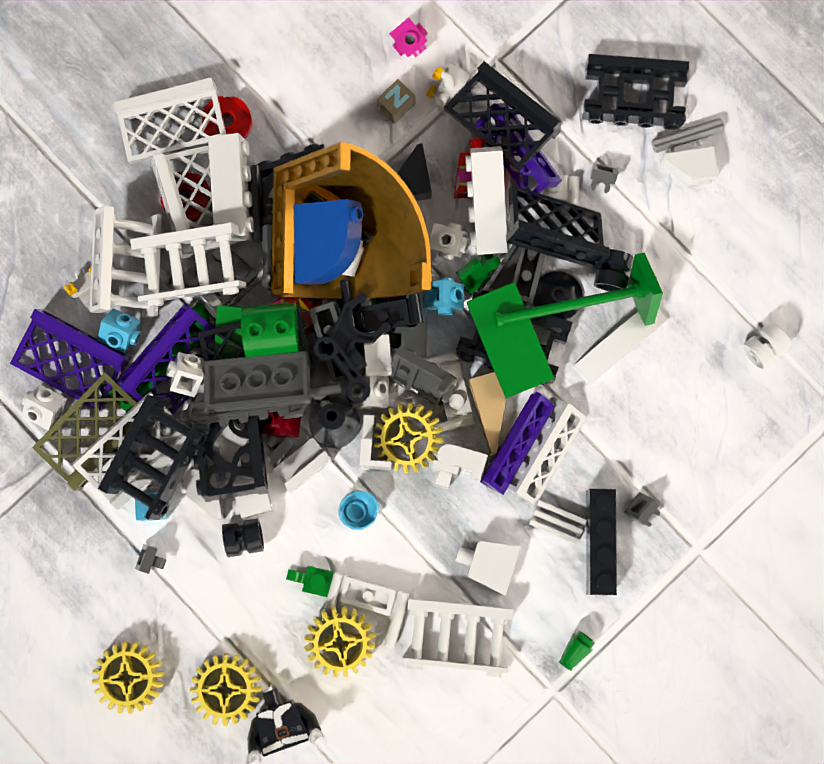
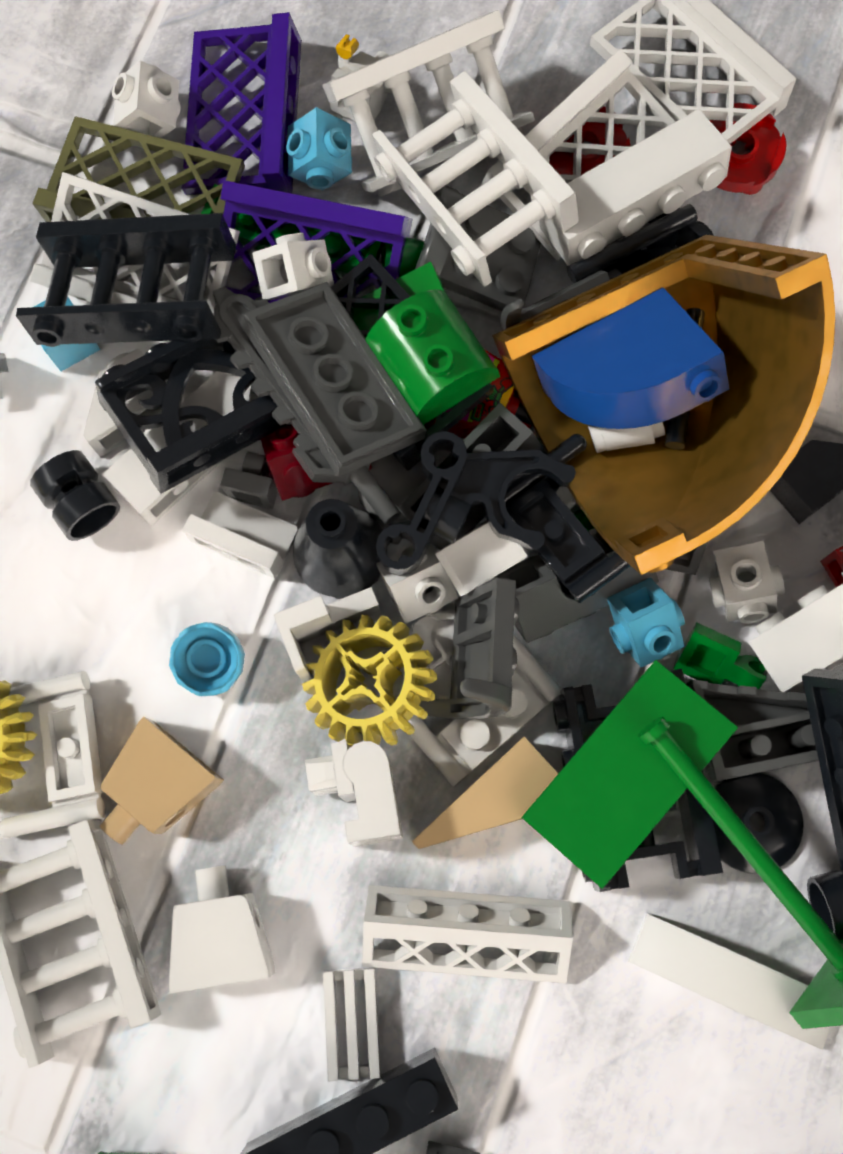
camera: 70 degrees right, 5 degrees down
(315, 580) = (60, 647): green plate -> none
(405, 562) = (154, 783): none -> tan torso
(517, 443) = (455, 880): dark purple fence -> none

